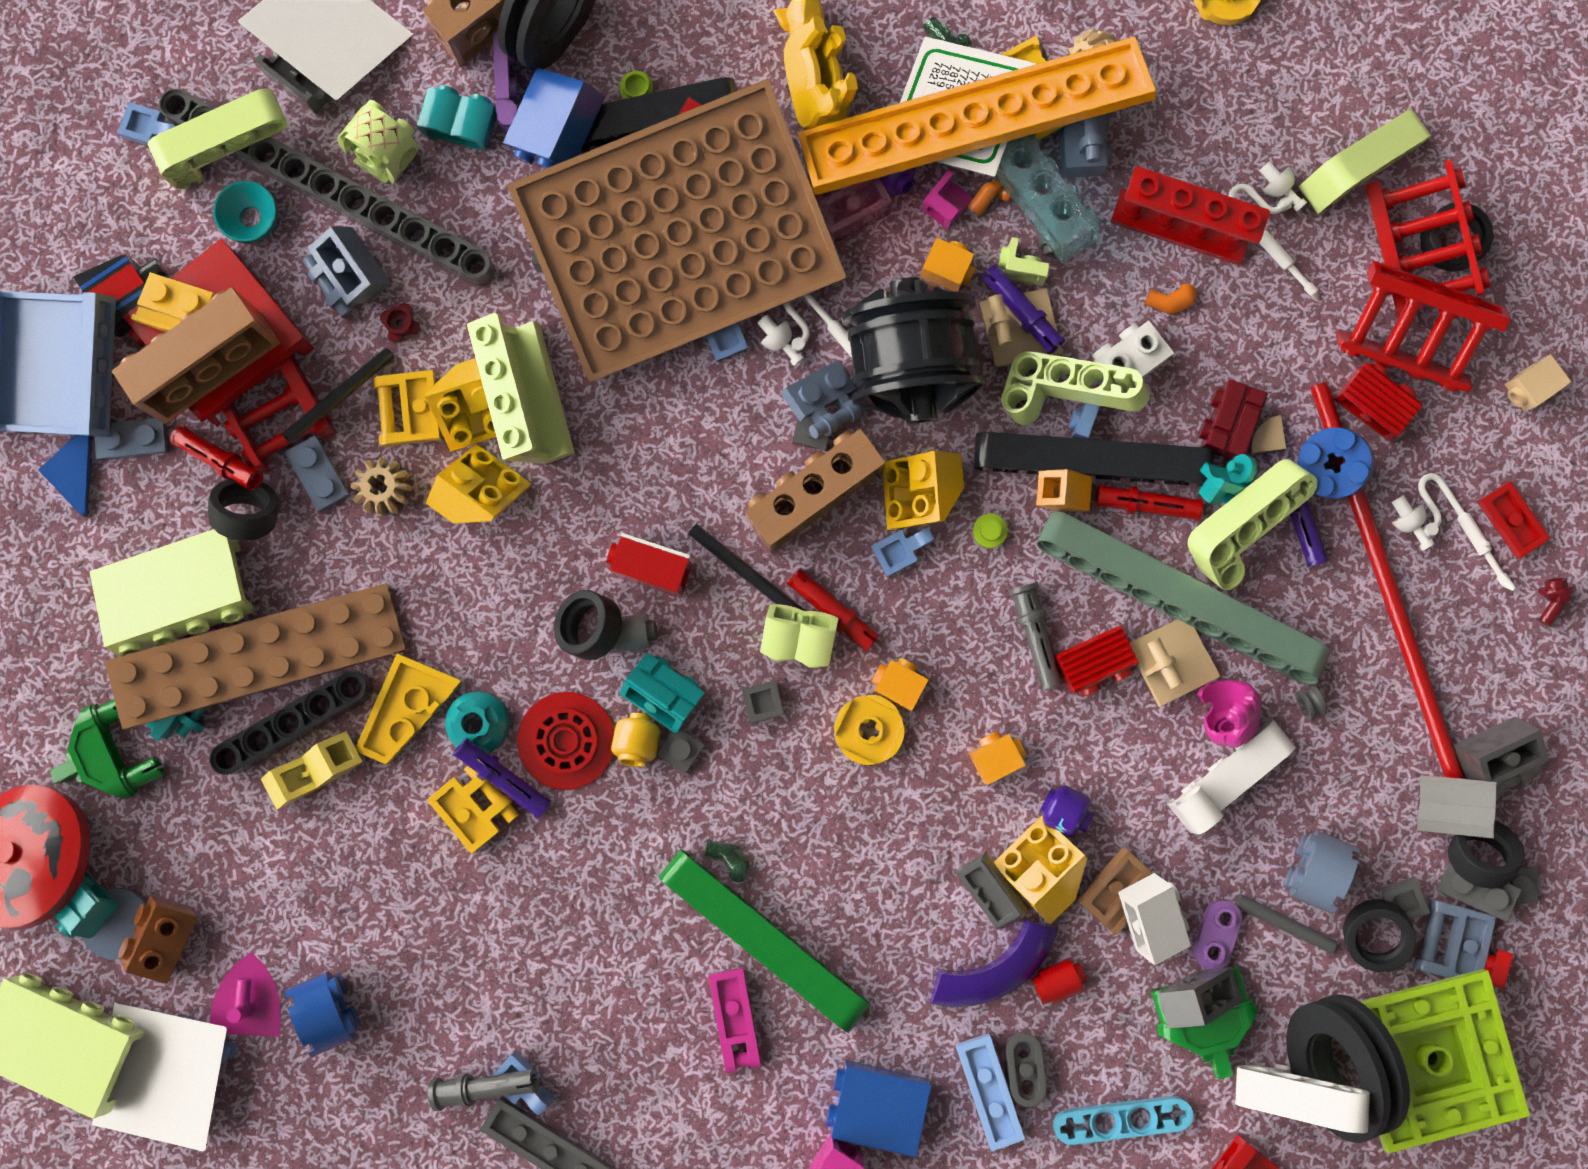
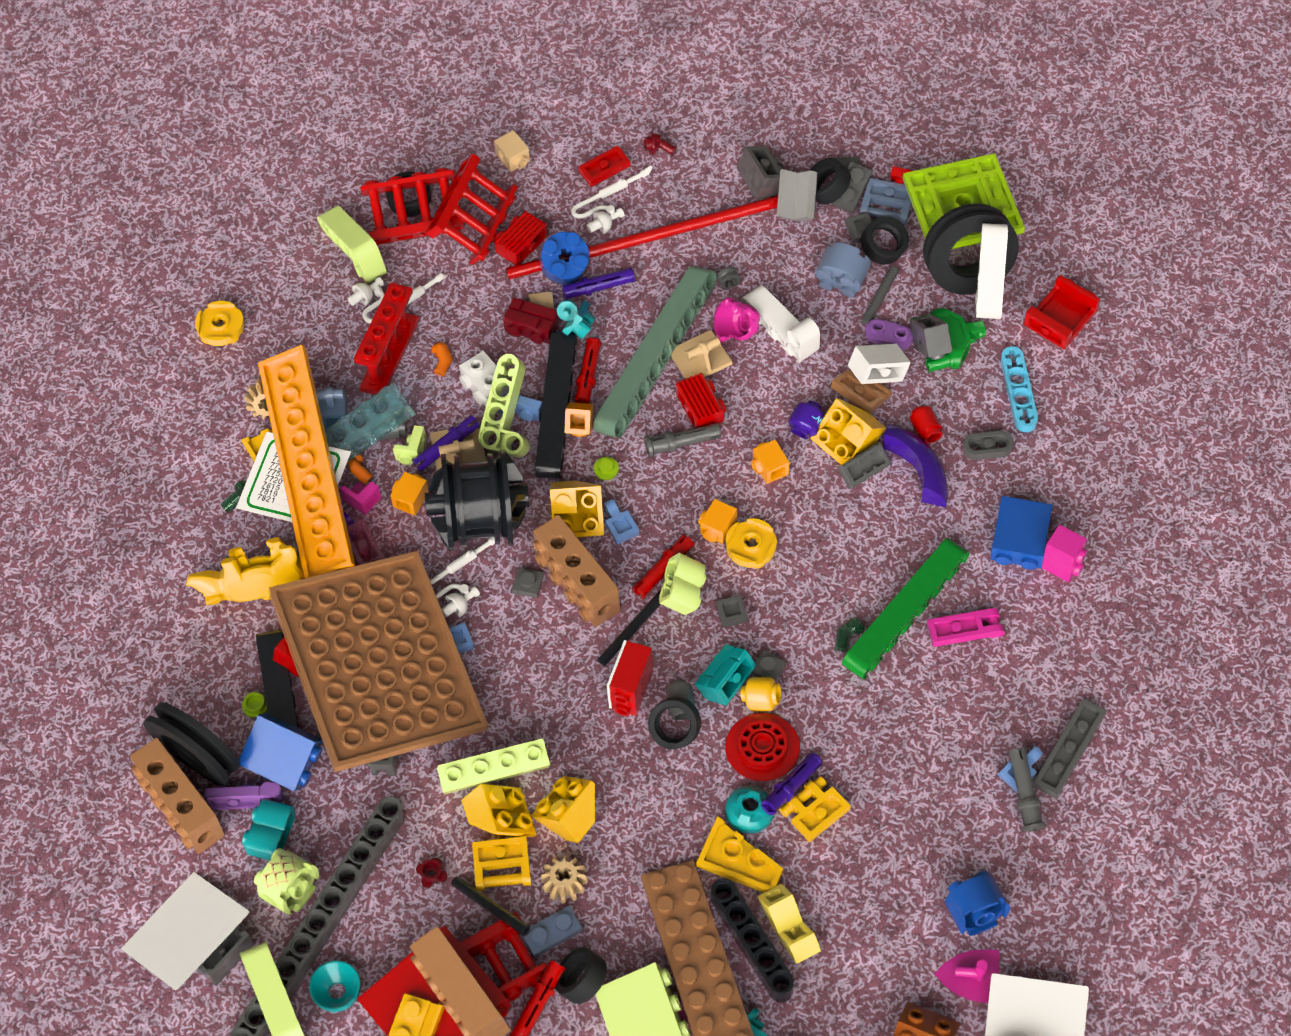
camera: 85 degrees left, 25 degrees down
(344, 269) = (385, 903): sand blue brick -> none
(818, 391) = (502, 574): sand blue plate -> none
(990, 1092) = (1005, 466): light blue plate -> none
(1247, 518) = (603, 307): yellowish green beam -> none

